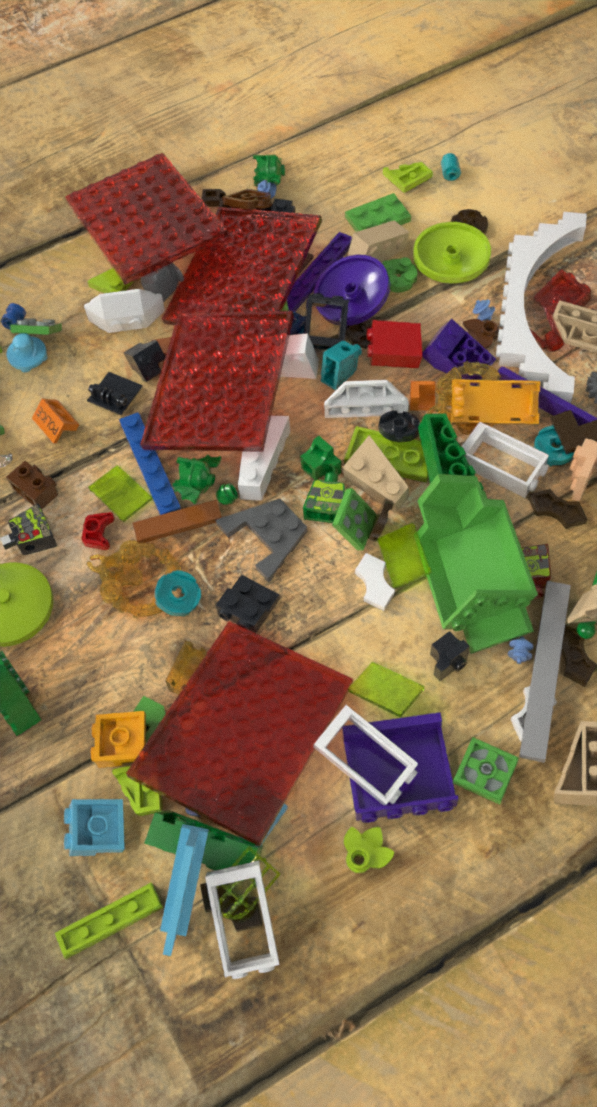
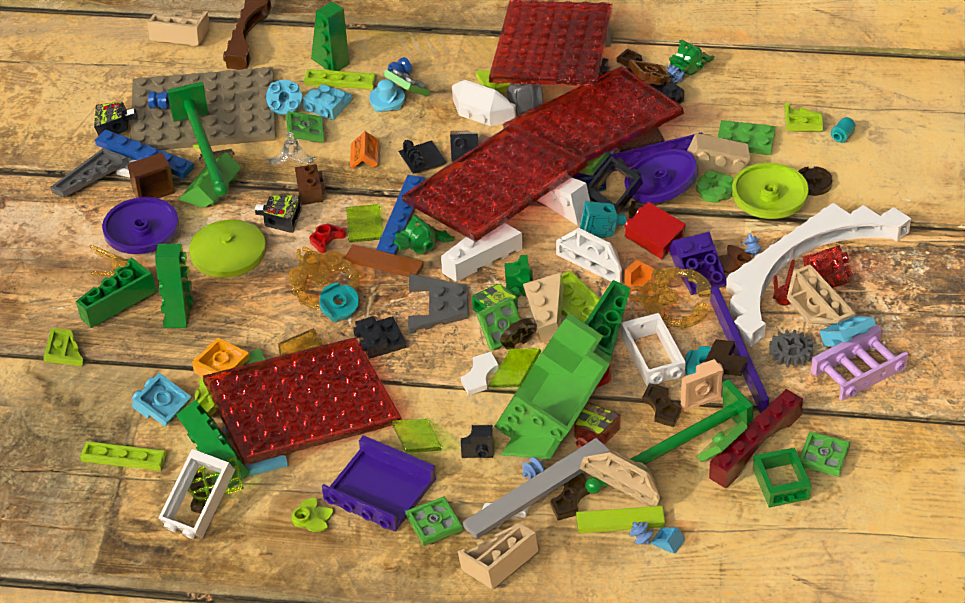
camera: 35 degrees right, 15 degrees down
(183, 884) = (172, 460): medium azure fence -> none
(227, 494) = (433, 261): green plate -> none
(333, 729) = (353, 428): white window -> none
(399, 426) = (596, 284): black tile -> none
(495, 402) = (682, 305): light orange piece -> none

